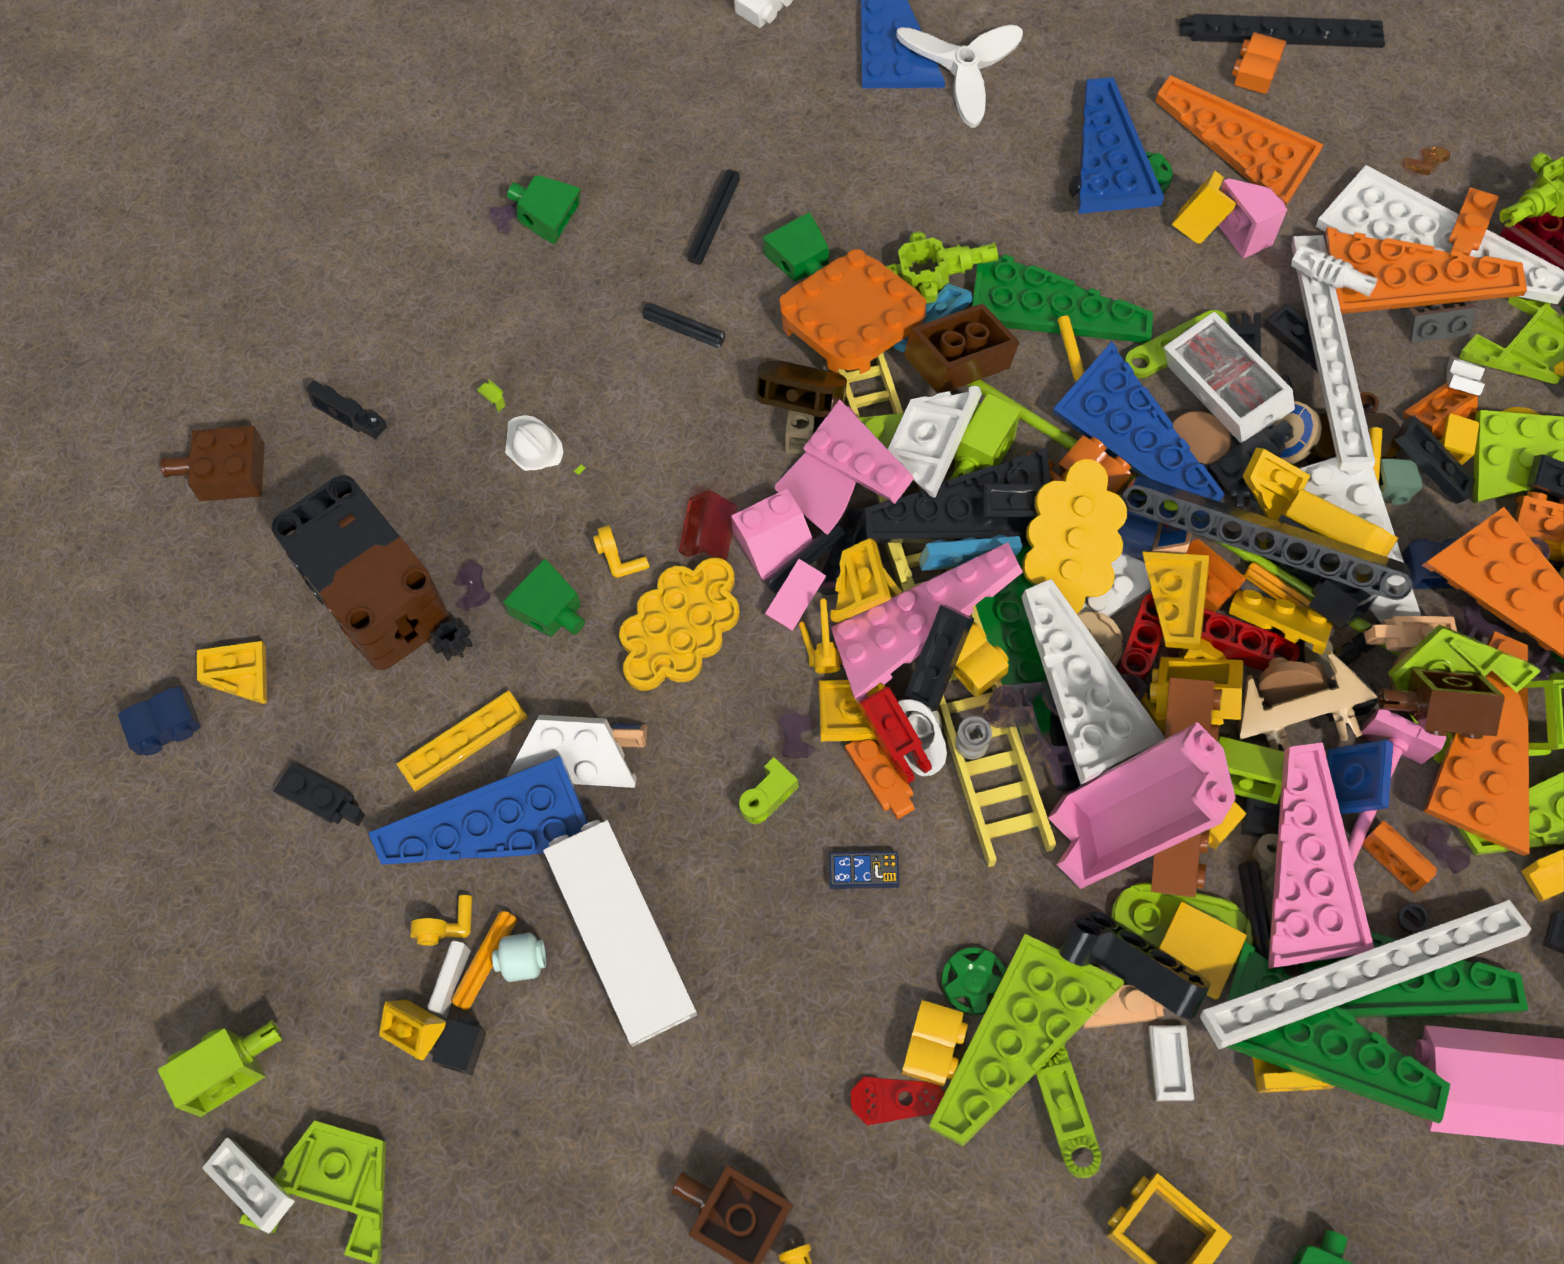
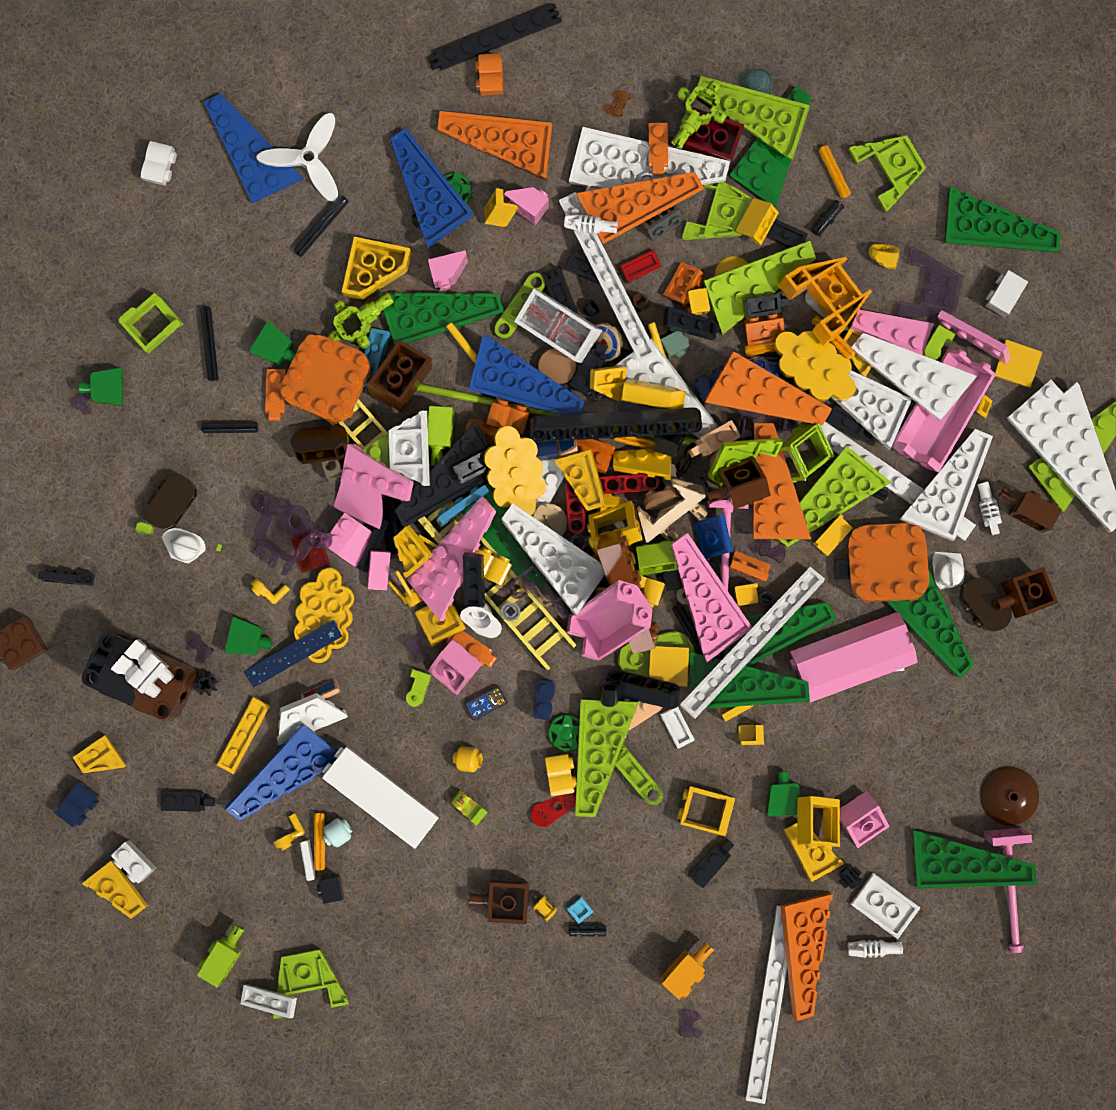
camera: 30 degrees left, 20 degrees up
(134, 877) = (116, 888): none -> yellow wing
(183, 846) = (133, 862): none -> white brick
(368, 552) = (147, 672): none -> white hips
(410, 1027) = (303, 892): yellow slope -> none
(548, 378) = (171, 502): none -> dark brown brick
(604, 654) = (293, 653): none -> dark blue sticker
(634, 142) = (133, 315): none -> lime piece
(709, 495) = (268, 513): none -> clear purple piece
(755, 1024) = (469, 807): none -> lime leg
(767, 312) = (274, 400): none -> orange hinge
(791, 942) = (467, 759): none -> yellow head
(841, 787) = (454, 667): none -> bright pink slope
(894, 732) = (467, 626): red hinge -> none
(940, 143) = (321, 225): none -> black axle
(966, 901) = (544, 693): none -> dark blue brick
(990, 208) = (373, 267): none -> yellow brick
(1096, 248) = (447, 269): none -> bright pink slope
(1301, 1140) = (751, 735): none -> yellow panel
(1380, 895) = (746, 594): none -> yellow panel
(1383, 365) = (640, 266): none -> red tile
(1465, 376) = (689, 255): white slope -> none

